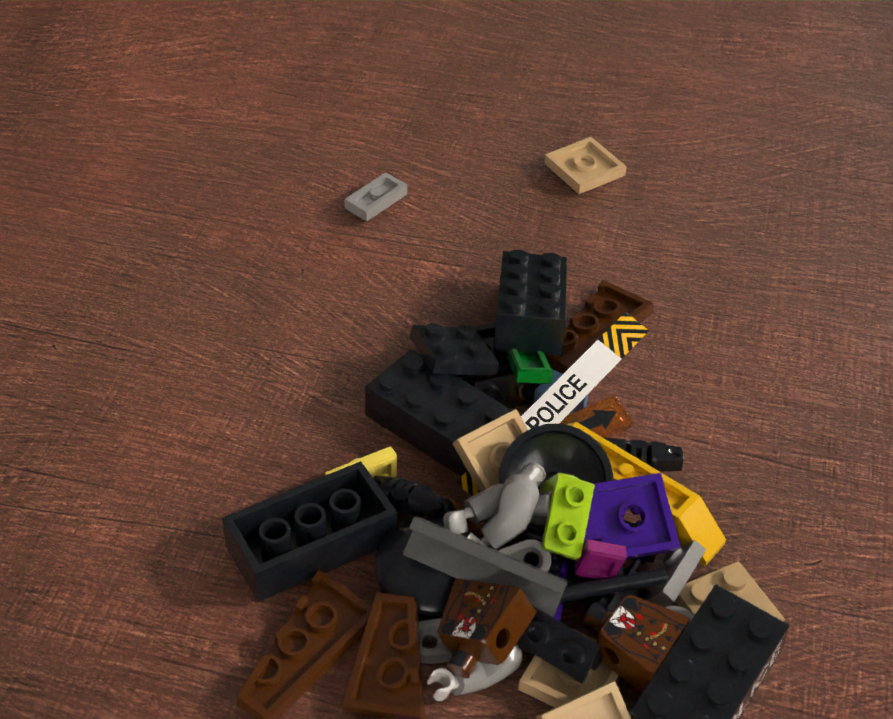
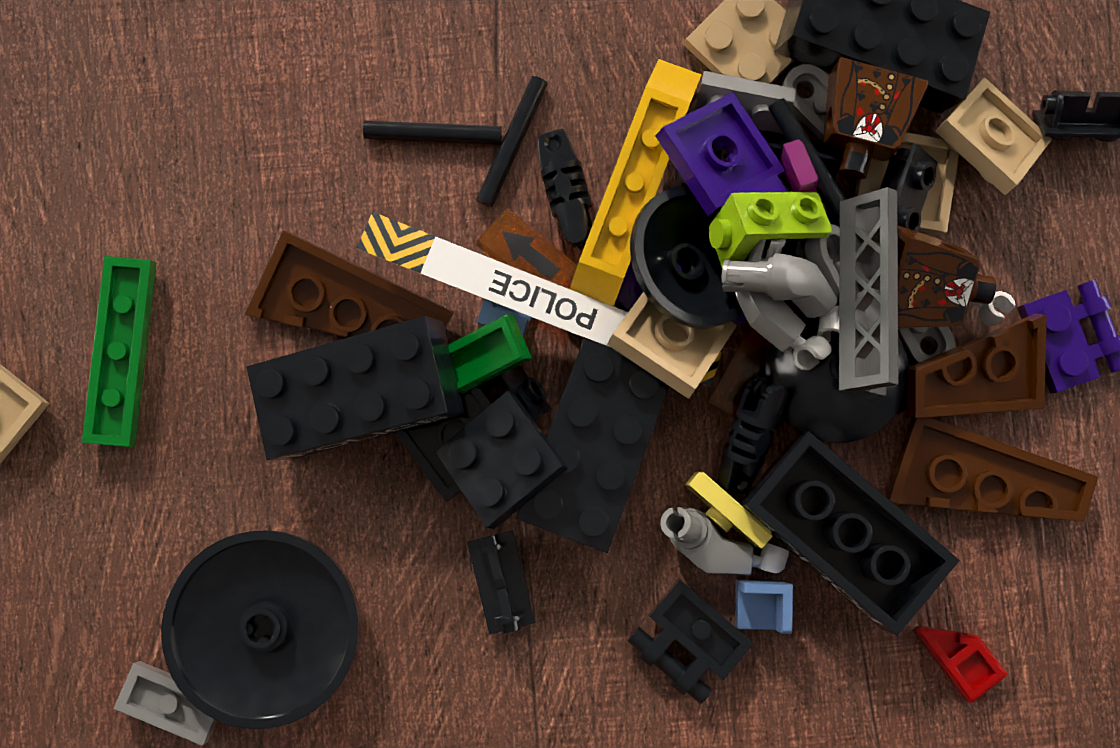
camera: 110 degrees left, 40 degrees up
(175, 590) = (963, 660): none -> red tile
(281, 433) = (700, 630): none -> black plate
(282, 476) = (764, 605): none -> medium blue panel
(346, 450) = (703, 544): none -> light grey arm
(358, 350) = (501, 582): none -> black hinge
(400, 234) = (260, 629): none -> black dish
(600, 224) = (119, 351): none -> green plate
(687, 444) = (512, 141): none -> black bar
(702, 404) = (432, 132): none -> black bar

